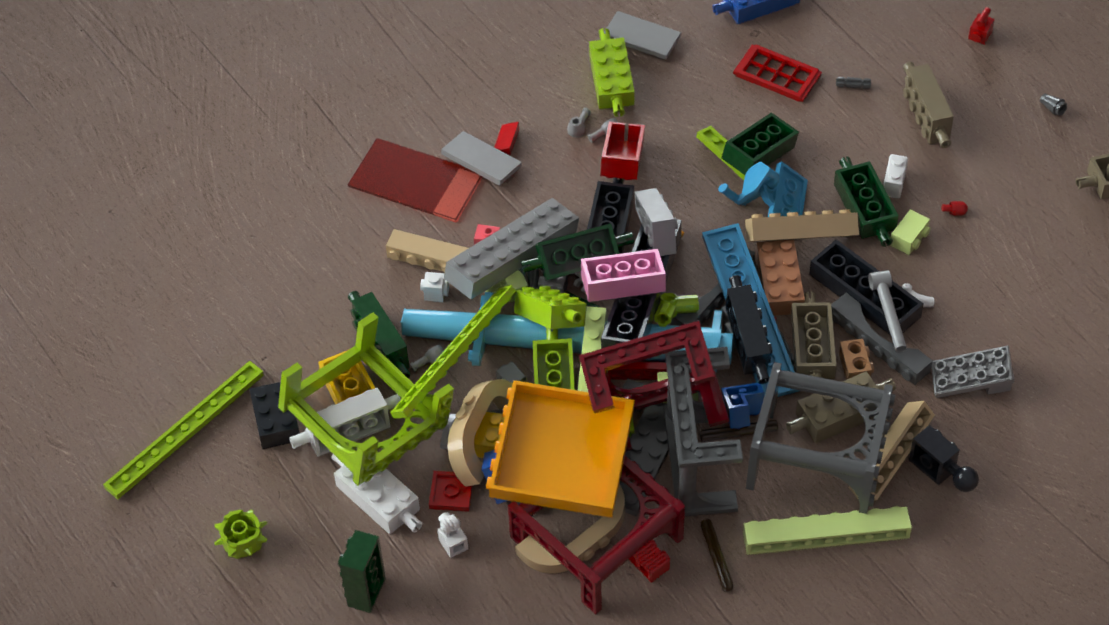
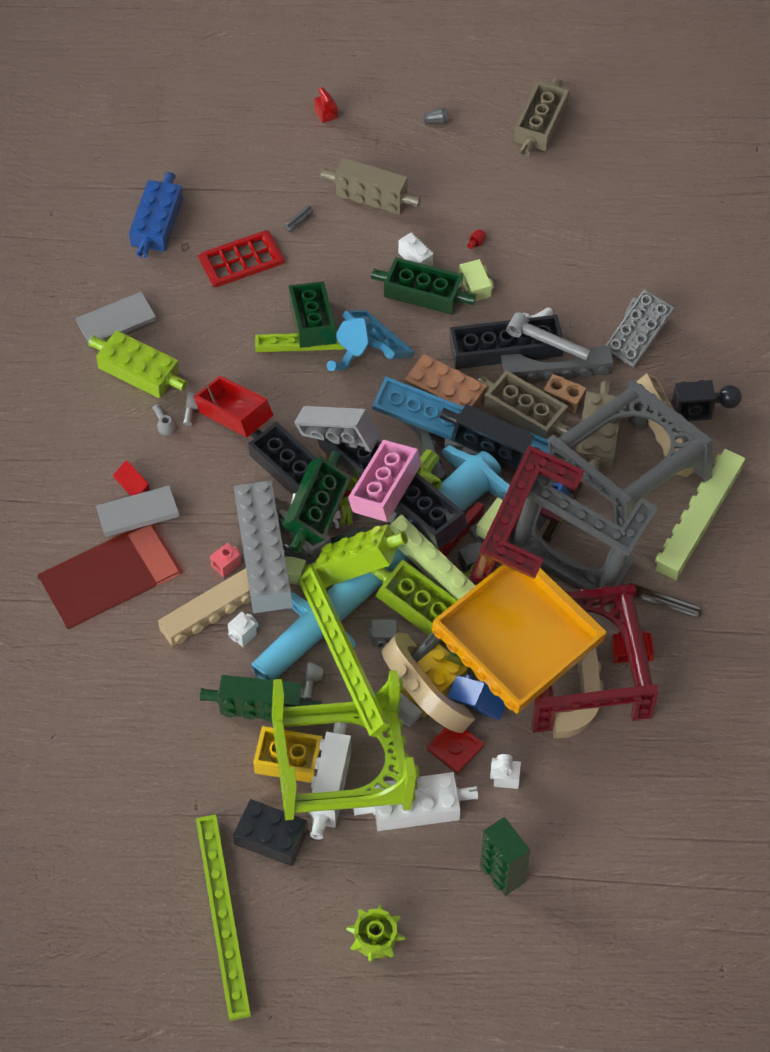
camera: 55 degrees left, 5 degrees up
(801, 227) = (418, 340): tan brick -> none

